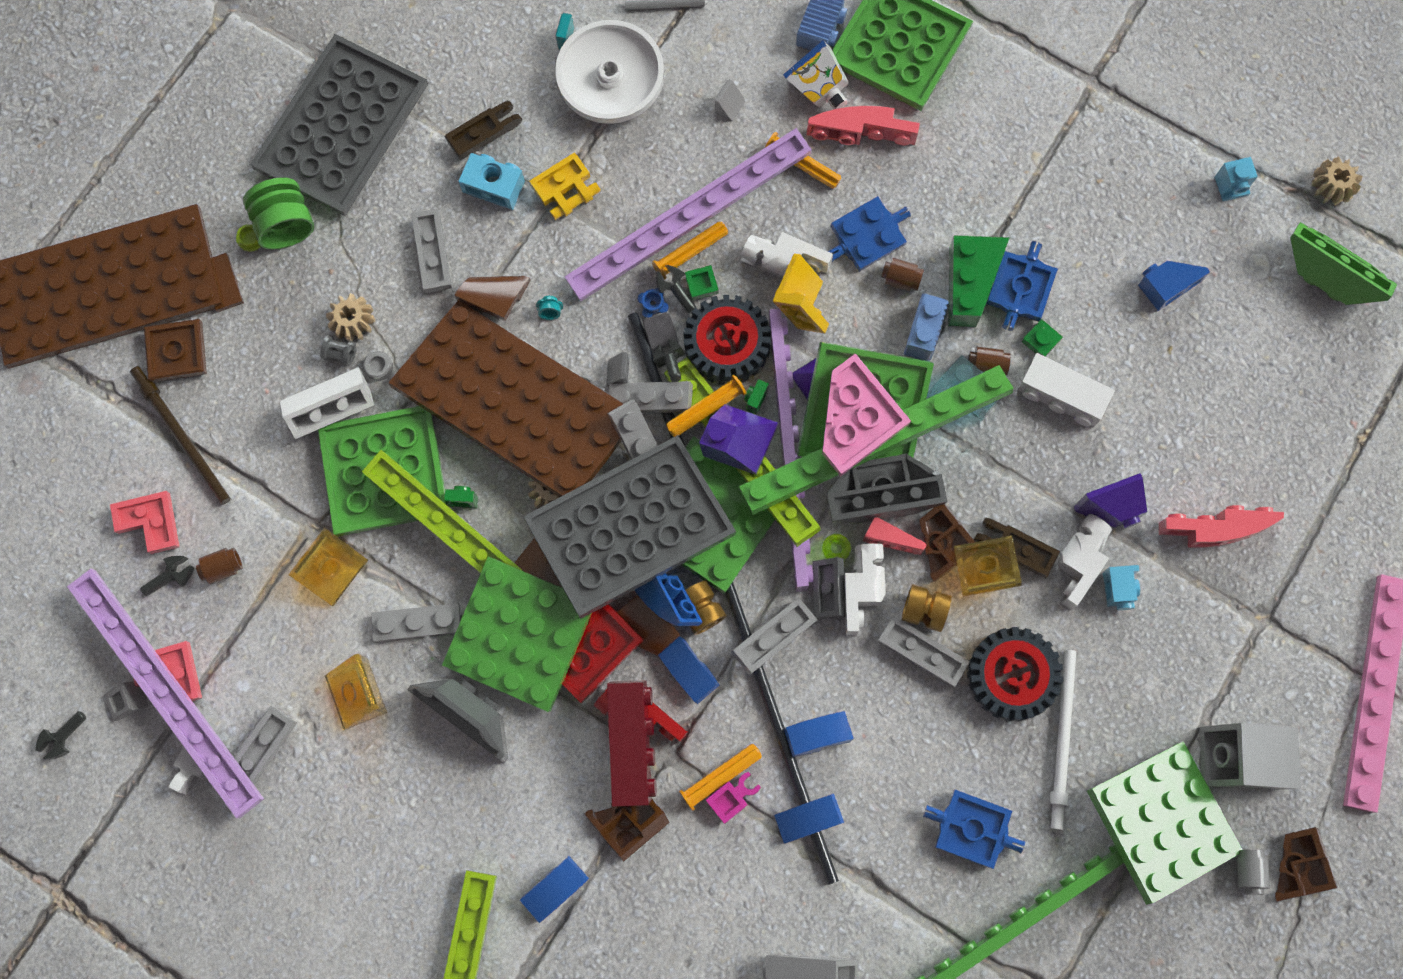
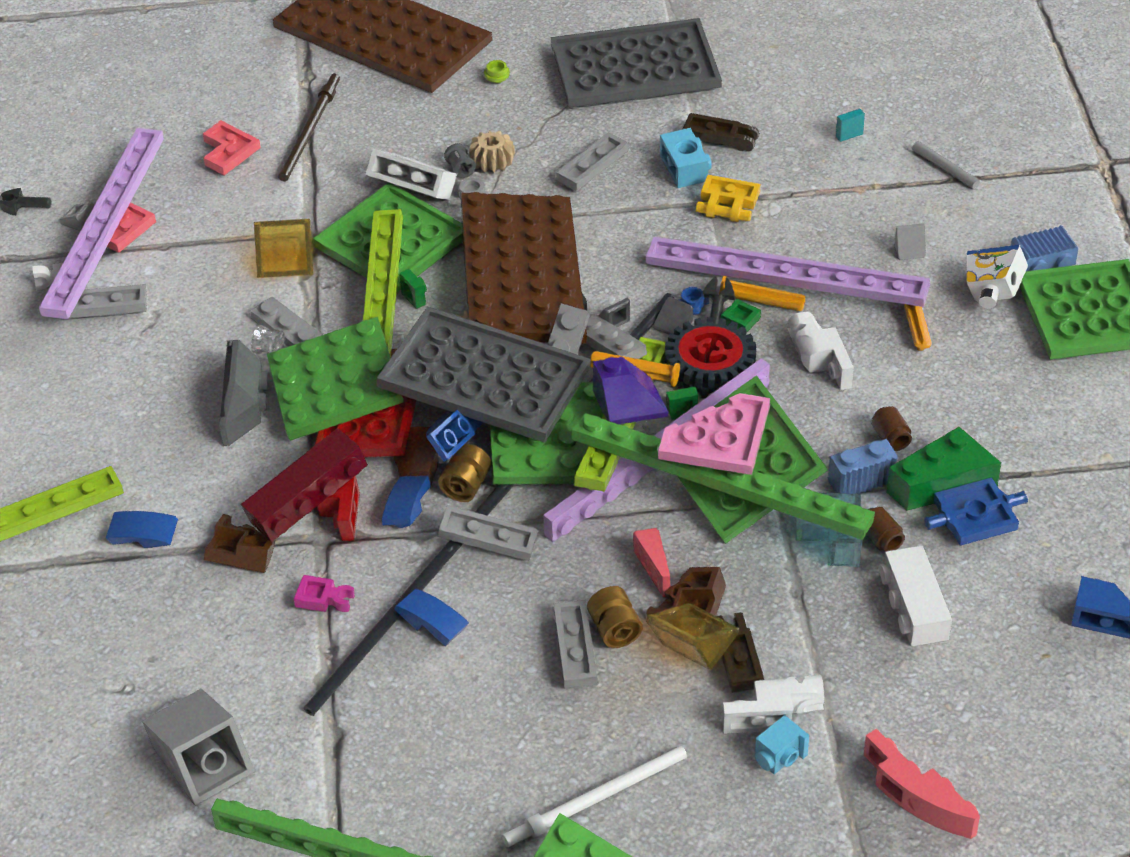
camera: 50 degrees right, 30 degrees down
(169, 575) = (204, 186): pearl dark grey bar -> none
(175, 350) = (370, 86): reddish brown plate -> none
(219, 565) = (229, 198): reddish brown brick -> none
(227, 283) = (450, 84): reddish brown tile -> none
(278, 213) = (527, 65): bright green wheel -> none
(355, 692) = (203, 325): clear yellow slope -> none
(492, 294) = (595, 212): reddish brown slope -> none
(549, 308) = (620, 247): teal plate -> none
(609, 71) = (847, 161): white dish -> none
(669, 359) = (653, 331): pearl dark grey bar -> none
(721, 775) = (362, 583): light orange axle -> none
(797, 295) = (797, 368): yellow bracket -> none
(809, 818) = (351, 650): blue slope -> none
(829, 588) = (559, 550): dark grey plate -> none
(836, 539) = (608, 532): clear neon green plate -> none
(852, 122) = (986, 322): coral slope -> none
(865, 586) = (588, 566): white plate -> none
(868, 233) = (903, 386): blue plate -> none
(885, 490) = (686, 519): dark grey wedge -> none
(973, 829) = (447, 776): blue plate -> none
(1026, 702) = (619, 700): wheel -> none
(1042, 338) = (946, 557): green plate -> none
(1116, 503) = (851, 682): dark purple slope -> none

